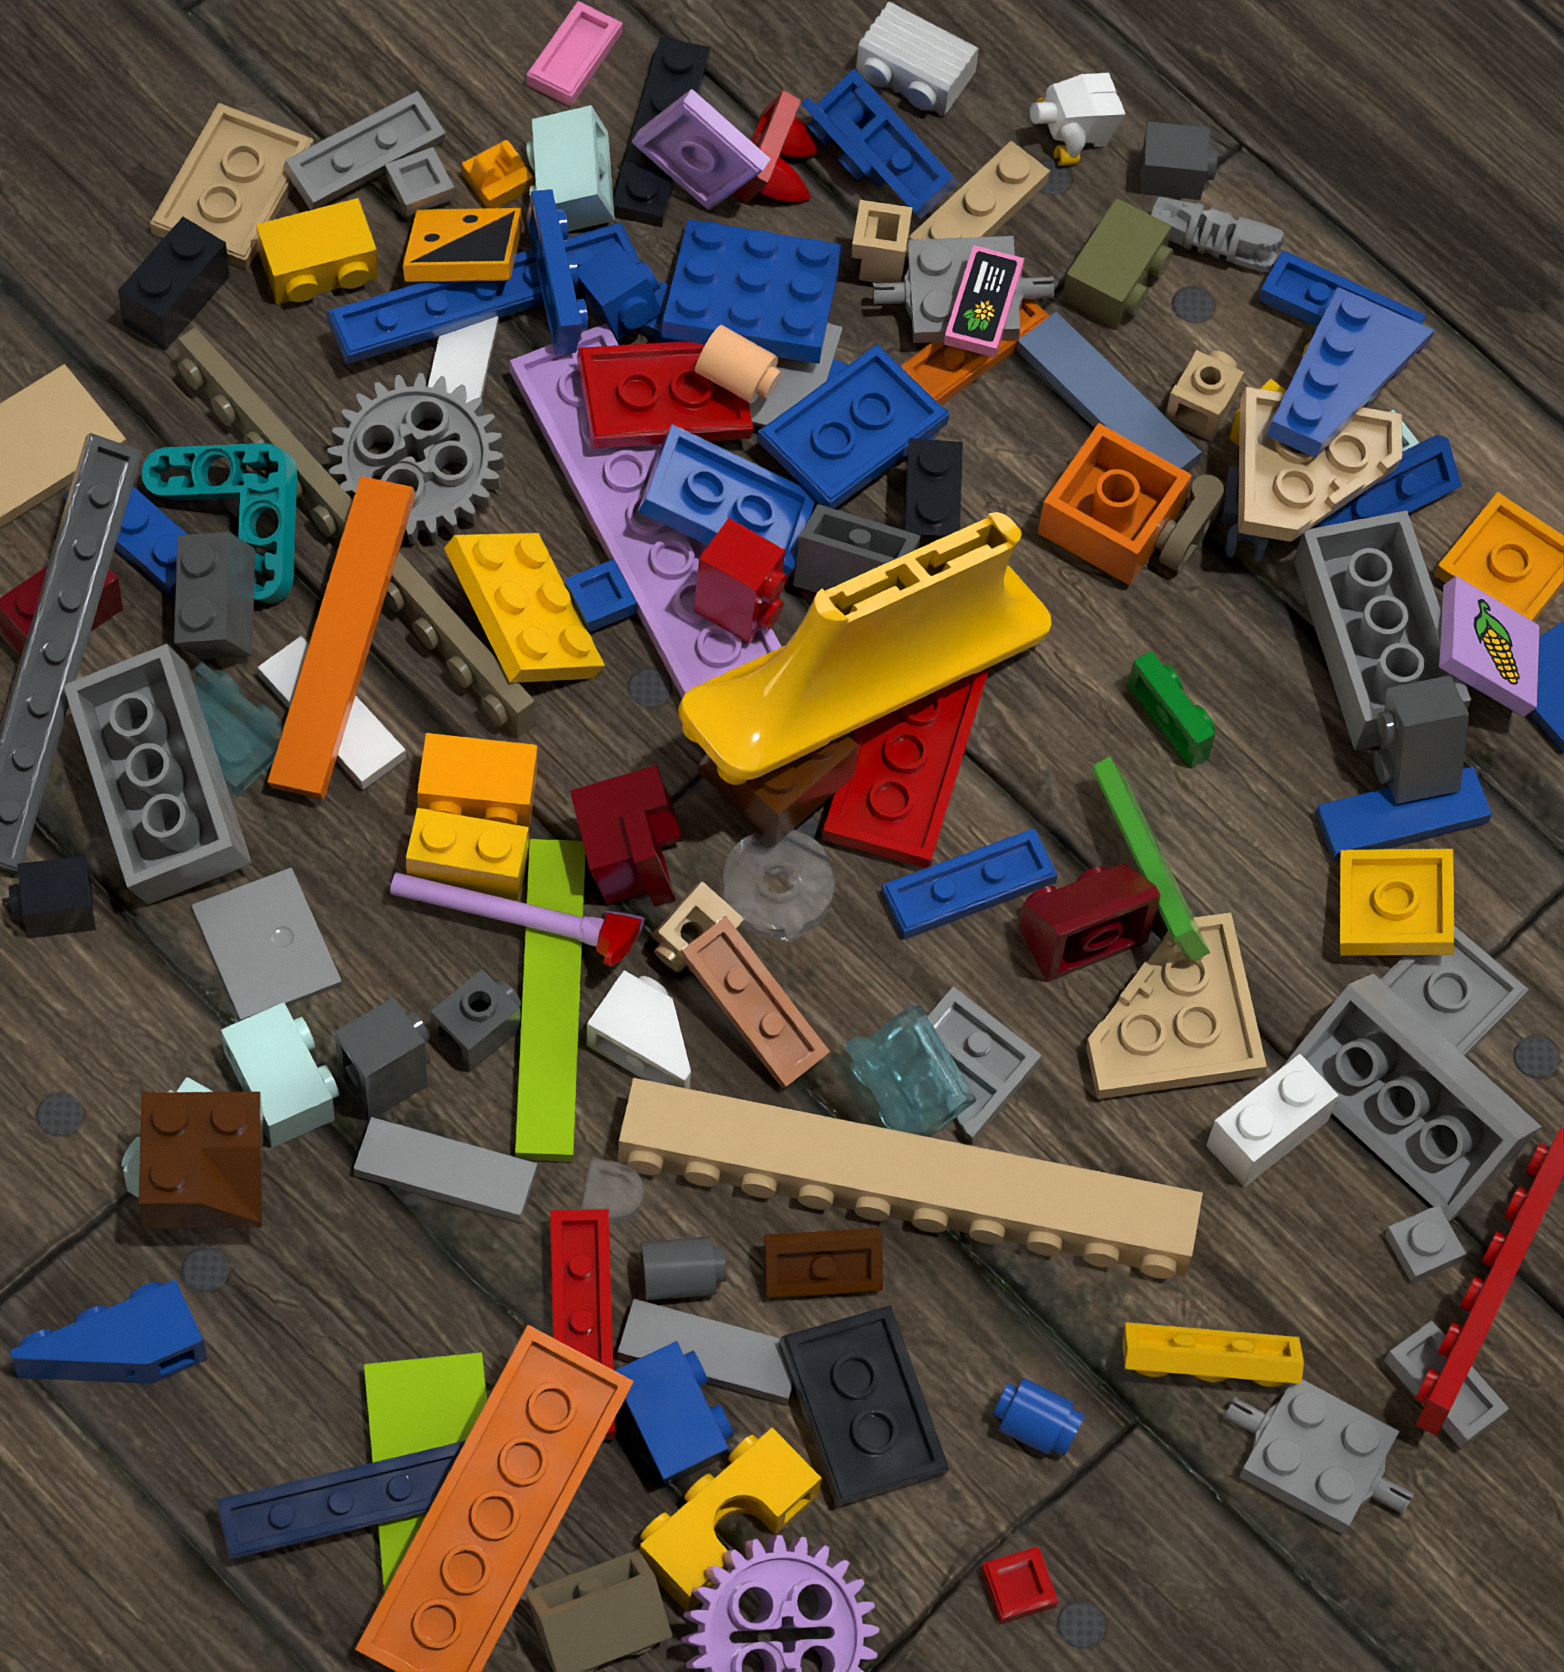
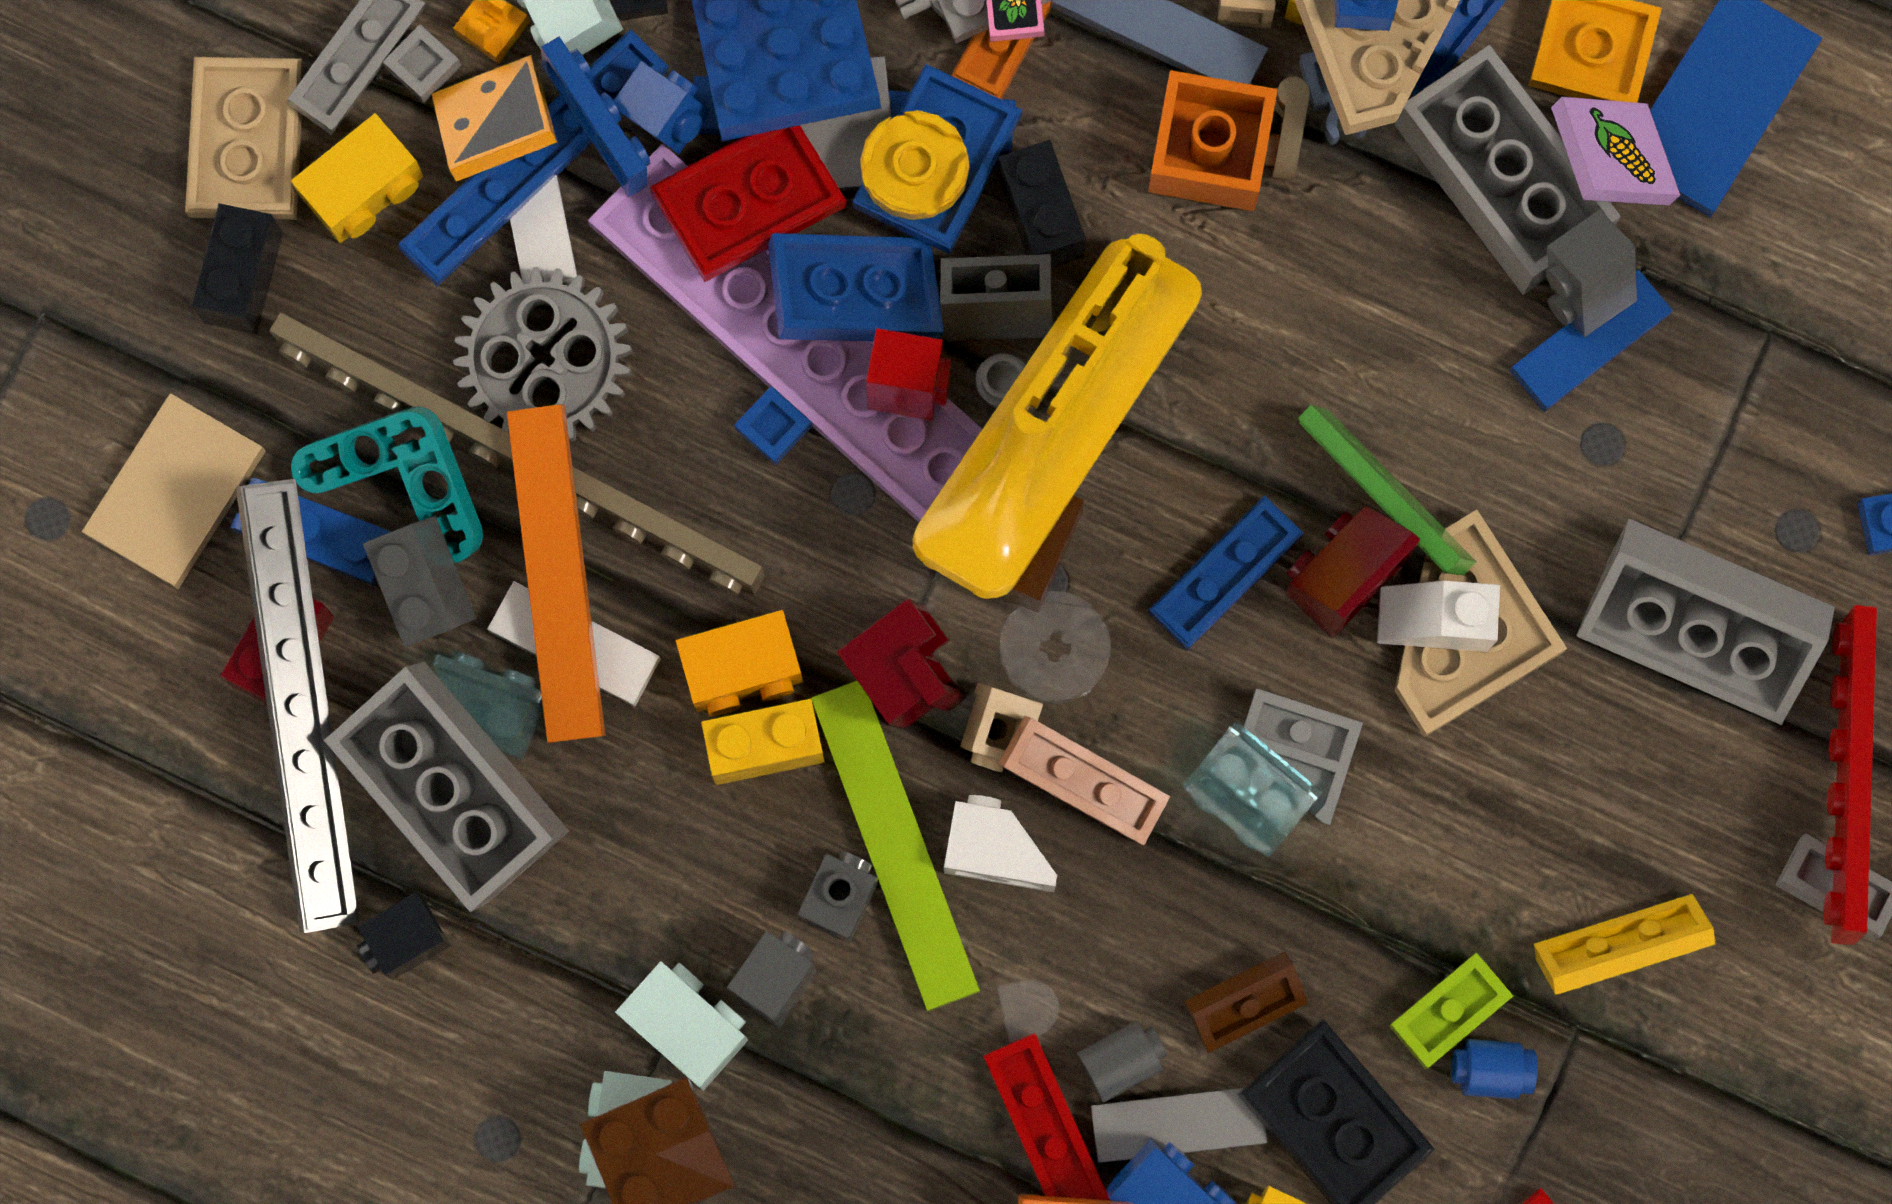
camera: 15 degrees left, 15 degrees up
(266, 944) = (613, 897): light grey piece -> none
(445, 1169) = (869, 1050): light grey tile -> none
(524, 607) = (709, 471): yellow plate -> none
(611, 936) = (924, 766): lavender piece -> none
(738, 365) = (810, 147): light nougat brick -> none
(828, 419) = (914, 165): none -> yellow tile
(906, 775) = (1130, 498): red plate -> none
(909, 1179) = (1291, 889): tan brick -> none
(1018, 1349) = (1450, 1011): none -> lime plate
(1156, 983) = (1440, 615): none -> white slope
(1162, 696) = (1325, 311): green plate -> none
(1272, 1120) = (1592, 699): white brick -> none
(1319, 1455) = (1753, 998): light grey plate -> none
(1397, 902) = (1622, 437): yellow plate -> none
(1425, 1244) = (1769, 756): light grey plate -> none
(1457, 993) = (1700, 496): light grey tile -> none

